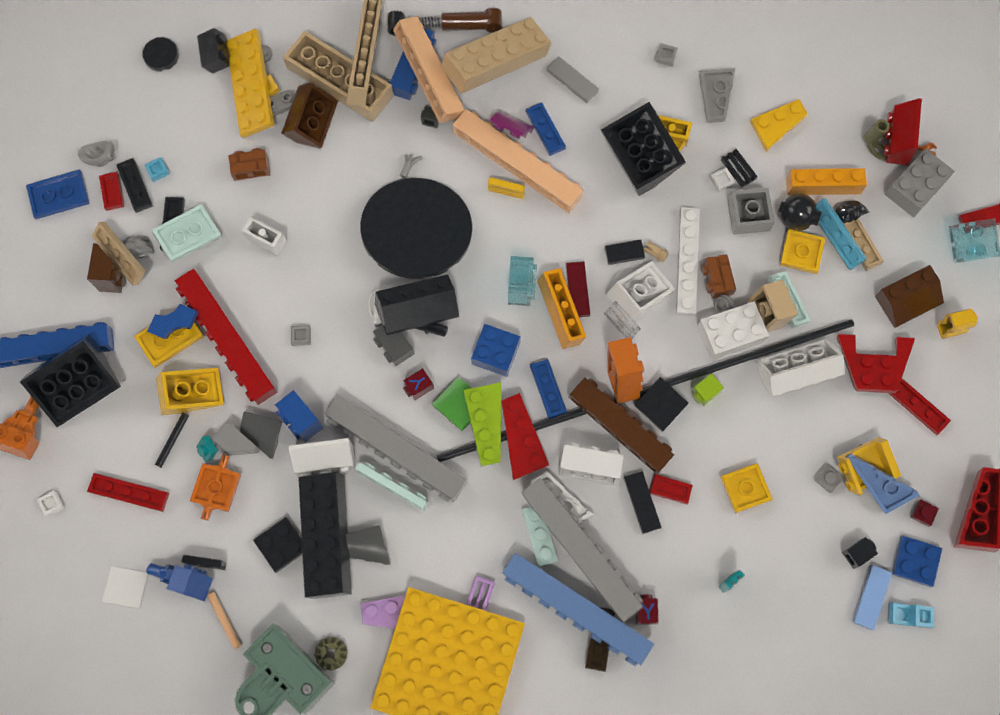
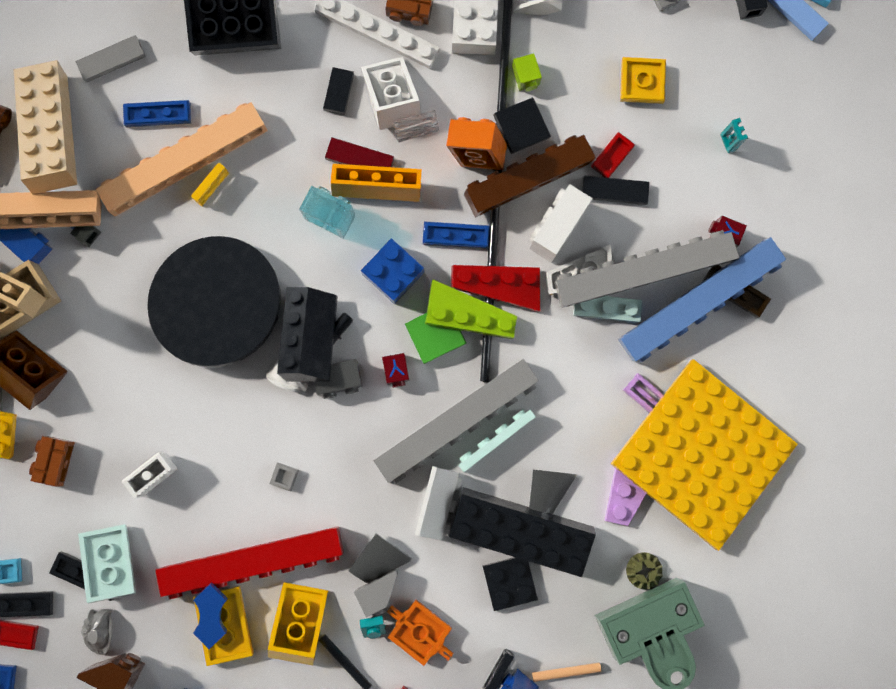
camera: 75 degrees left, 10 degrees up
(118, 253) = (98, 651): tan plate -> none
(301, 419) = (380, 512): blue brick -> none
(409, 162) = (131, 279): light grey bar -> none
(515, 126) = (131, 150): magenta slope -> none
(657, 252) = (353, 56): tan pin -> none
(723, 303) = (441, 14): light grey plate -> none

